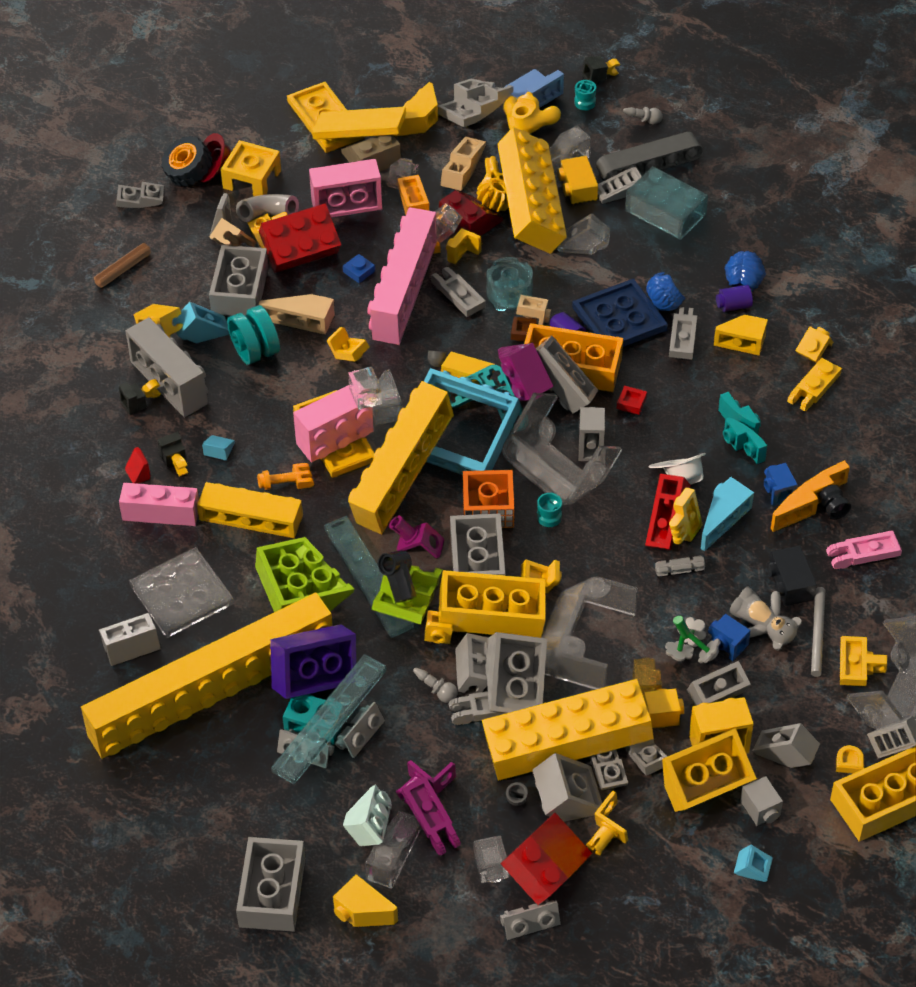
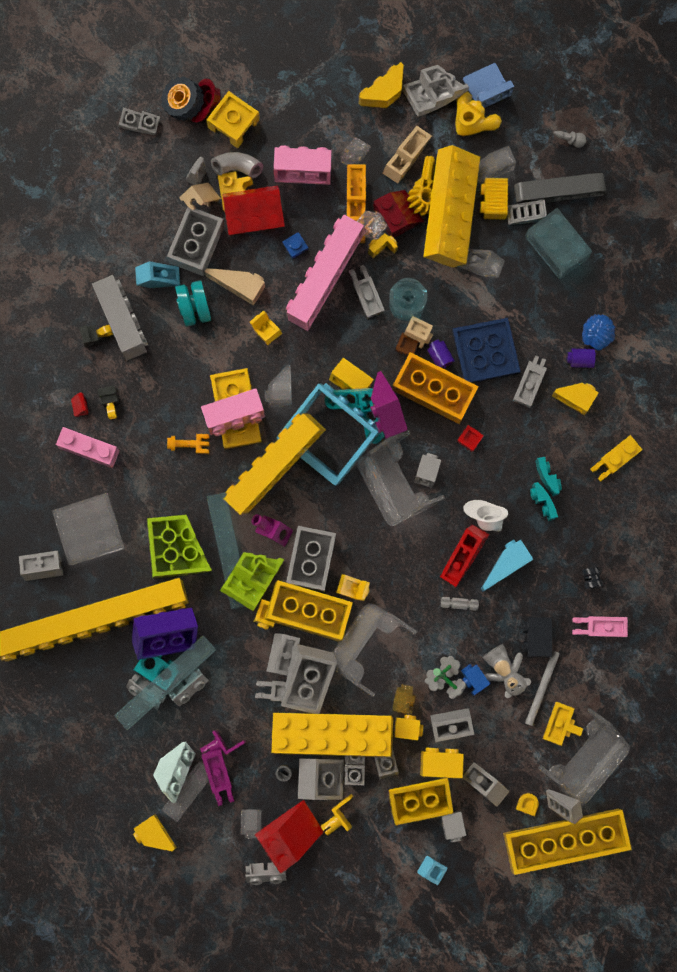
camera: 10 degrees right, 30 degrees up
(122, 265) = (109, 193): medium nougat axle -> none
(162, 315) = (123, 267): yellow hinge -> none
(218, 447) = (145, 398): medium azure slope -> none
(250, 510) = (154, 469): yellow brick -> none
(271, 884) = (94, 805): light grey brick -> none
(308, 106) = (309, 71): yellow tile -> none
(359, 123) = (331, 97): yellow tile -> none
(365, 388) = (259, 403): clear brick -> none
(382, 148) = (336, 124): dark tan slope -> none
(396, 568) = (243, 571): black piece -> none
(436, 358) = (332, 355): dark grey hinge -> none
(445, 690) = (258, 668): light grey bar -> none
(489, 494) = (332, 510): orange brick -> none
(549, 509) = (376, 525): teal wheel -> none
(568, 379) = (421, 413): light grey slope -> none
(585, 95) = (525, 108): teal wheel -> none
(596, 68) = (545, 78): pearl dark grey piece -> none
(664, 292) = (525, 341): blue hair -> none
(687, 519) = (475, 569): yellow hinge -> none
(779, 483) = (557, 549): blue brick -> none
(804, 500) = (570, 571): light orange slope -> none
(814, 343) = (629, 419): yellow bracket -> none

